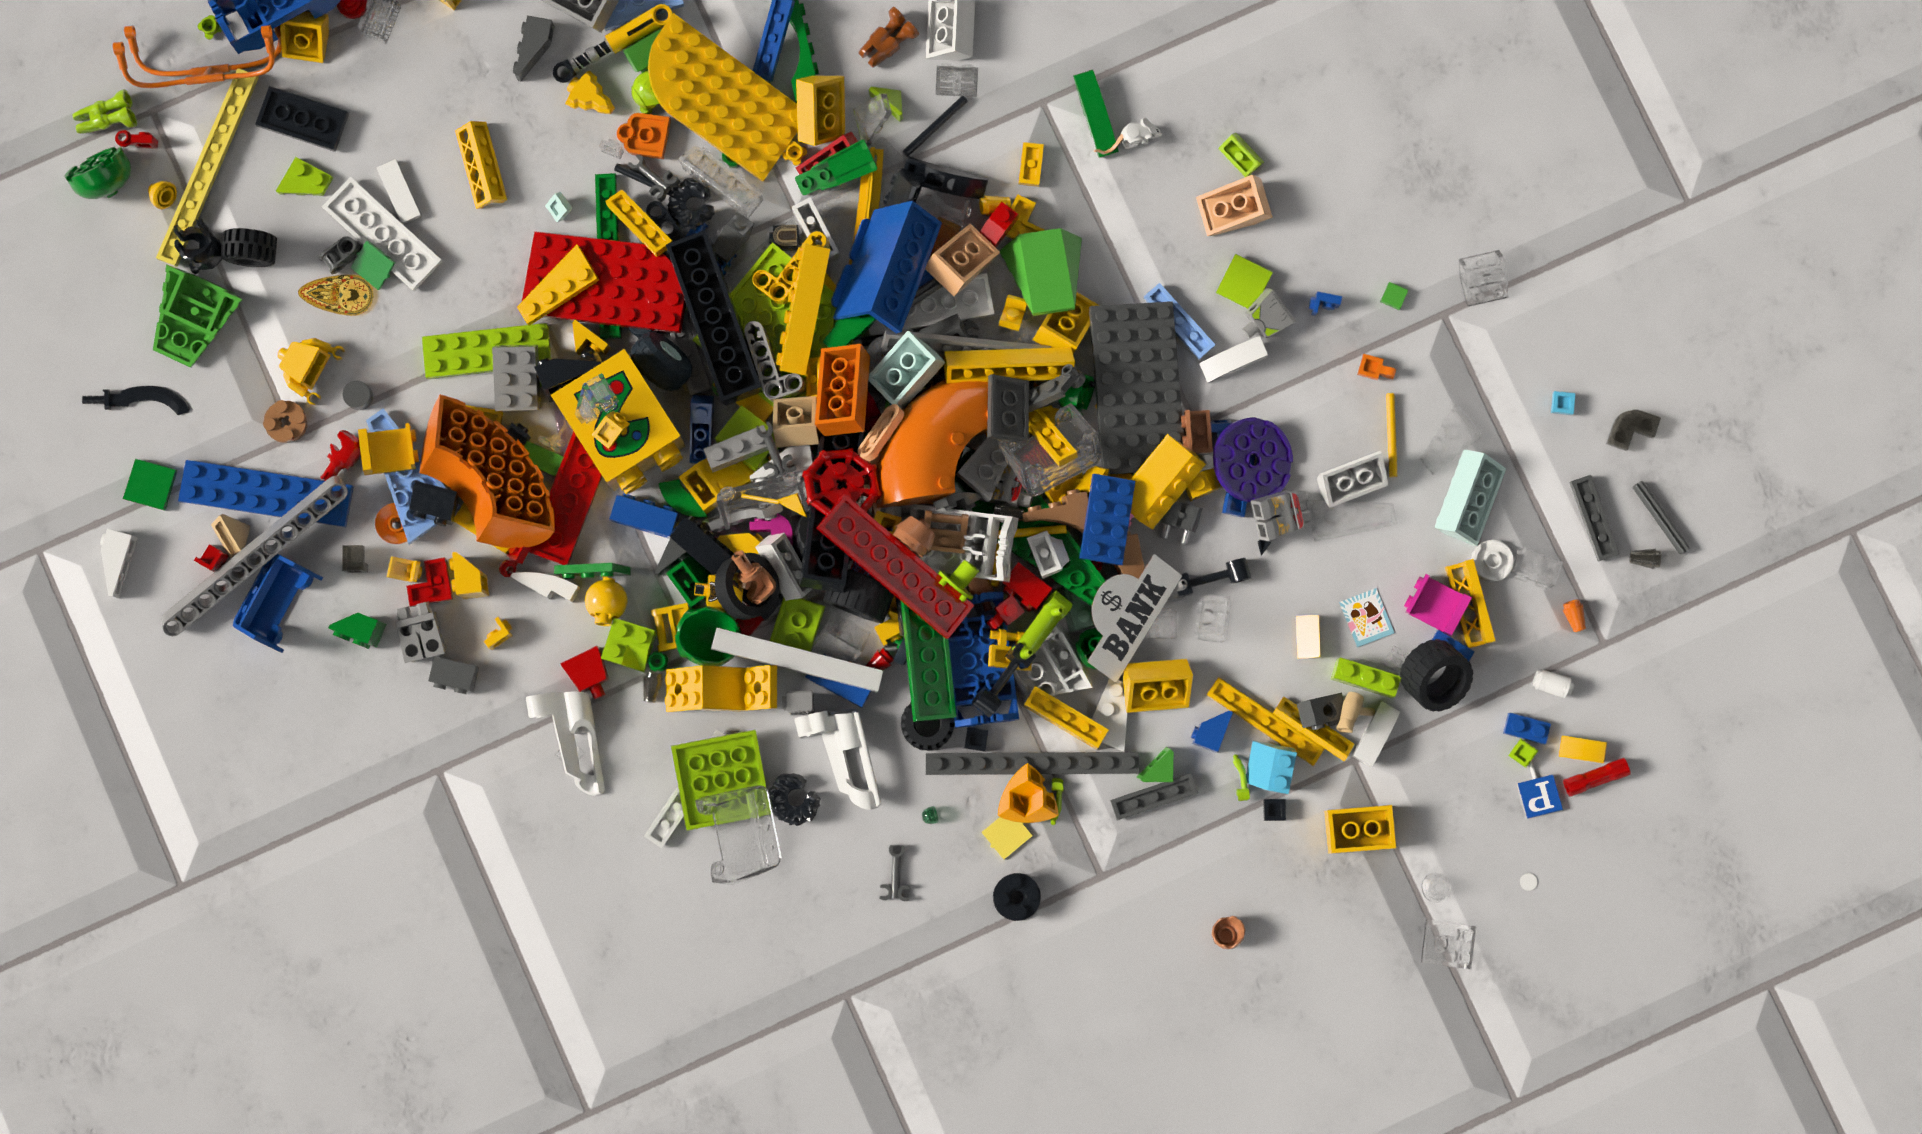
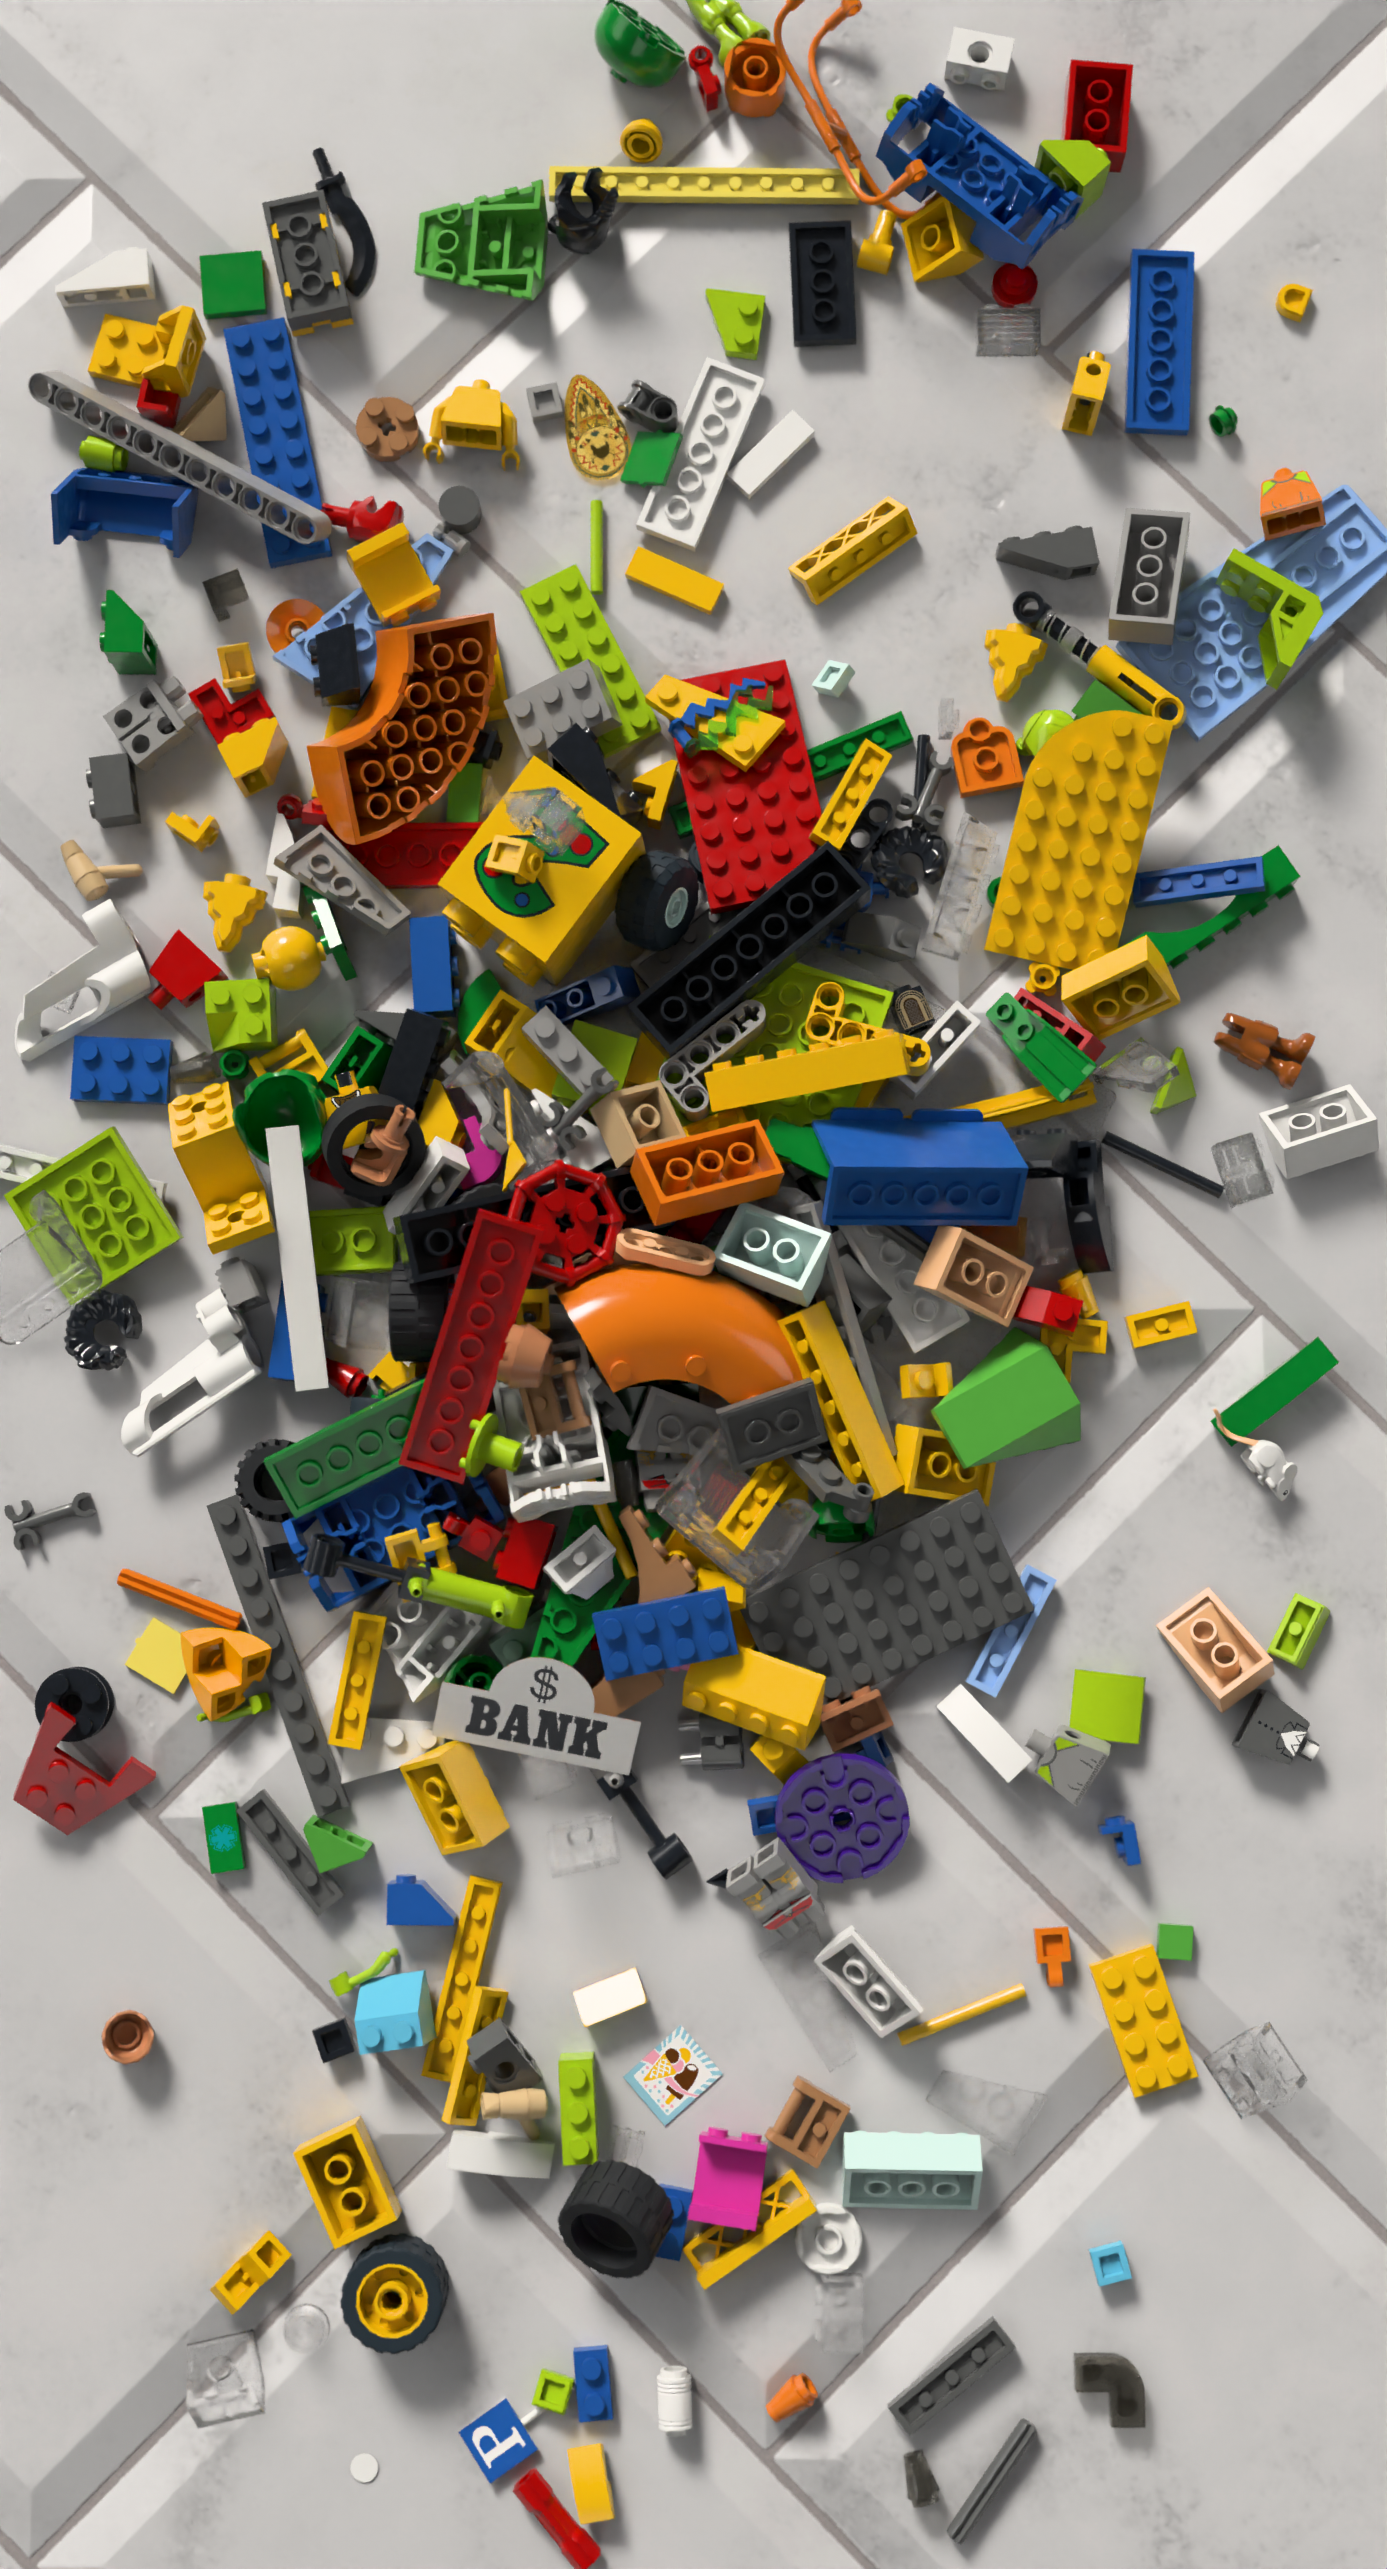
camera: 75 degrees right, 0 degrees up
(158, 430) = (307, 262): none -> dark grey piece
(163, 110) = (754, 78): none -> orange brick
(175, 552) = (163, 353): none -> yellow bracket
(230, 605) = (103, 454): none -> lime brick
(249, 247) = (608, 279): black tyre -> none
(294, 77) = (877, 250): none -> yellow pin
(308, 318) = (544, 402): none -> light grey tile
(375, 406) = (452, 539): none -> light grey piece
(415, 320) = (596, 547): none -> lime bar
(456, 280) = (674, 580): none -> yellow tile
(503, 710) = (89, 878): none -> tan piece
(558, 627) = (232, 907): none -> yellow rock
(567, 551) = (337, 875): none -> light grey wing
(572, 294) = (731, 707): none -> piece
(633, 733) = (121, 1070): none -> blue plate
(930, 815) = (150, 1535): clear green hinge -> none
(976, 811) = (179, 1599): none -> orange axle
(1065, 920) = (65, 1789): none -> red wing
(1130, 835) = (224, 1837): none -> green tile
(1293, 191) = (1275, 1731): none -> dark grey torso
(1392, 908) = (250, 2272): none -> yellow slope
(1426, 542) = (818, 2126): none -> medium nougat plate
(1432, 331) = (1143, 2020): none -> yellow plate
(1450, 818) = (389, 2320): none -> wheel

